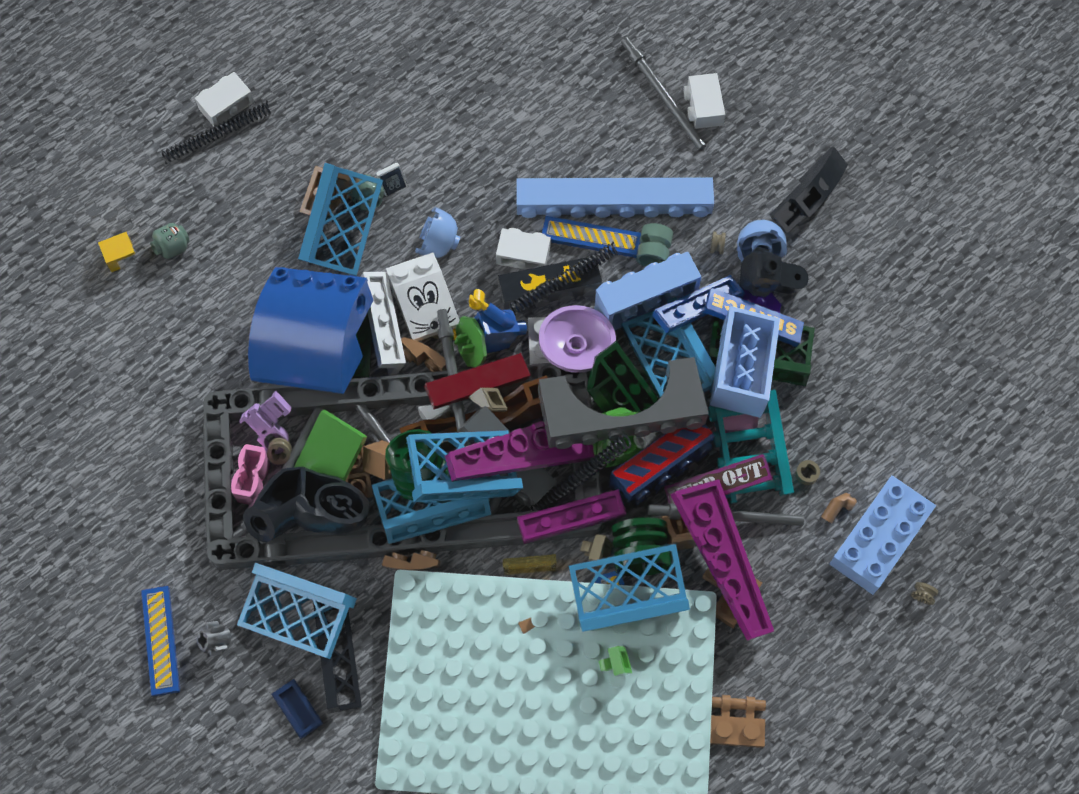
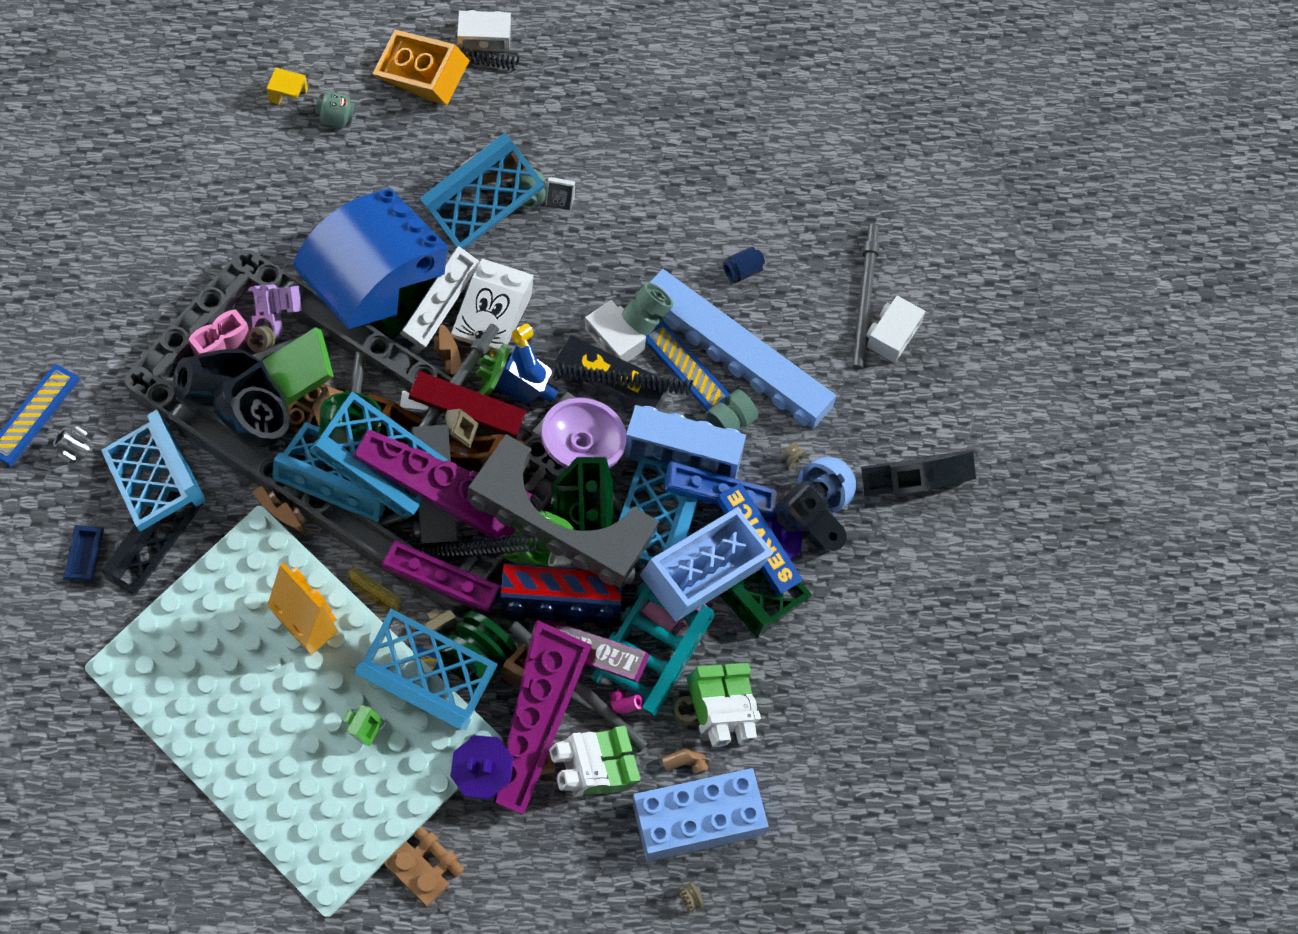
camera: 35 degrees right, 5 degrees down
(204, 160) = (422, 66): none -> light orange slope
(439, 234) = (554, 266): light blue cylinder -> none
(507, 618) = (301, 609): none -> light orange slope
(534, 217) = (644, 312): none -> sand green wheel
(564, 133) = (744, 264): none -> dark blue brick
(722, 622) = (481, 767): none -> dark purple piece
(767, 503) = (624, 705): none -> dark pink arm
(781, 563) = (596, 762): none -> hips
(831, 447) = (724, 702): none -> hips

